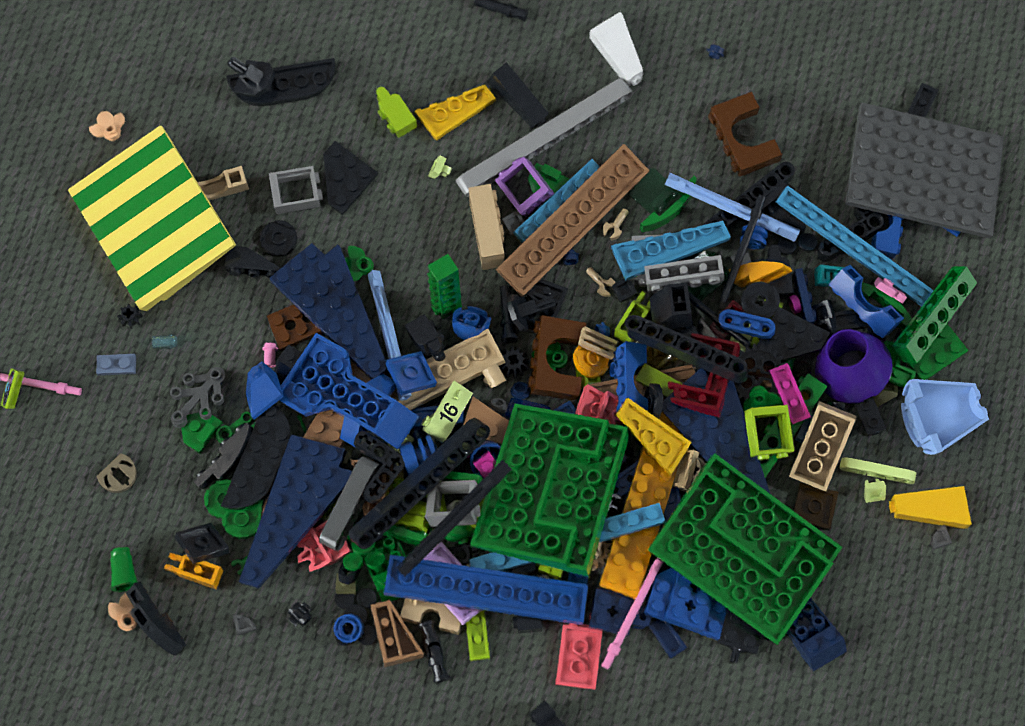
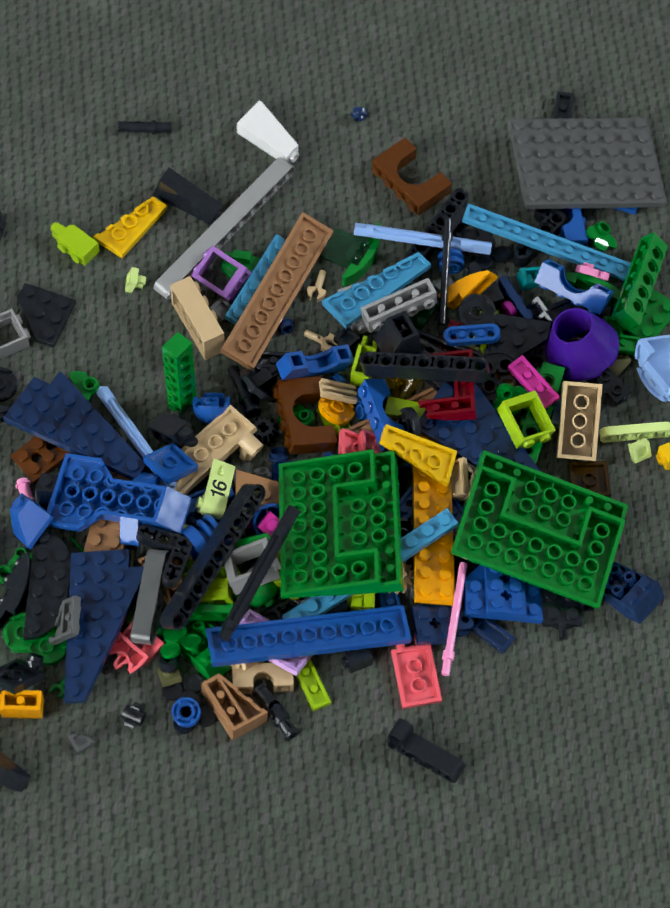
camera: 20 degrees left, 10 degrees down
(224, 532) = (34, 660): none -> black plate
(265, 504) = (67, 620): none -> dark grey wing
(584, 309) = (297, 365): none -> blue arch
(913, 252) = (601, 236): none -> green plate

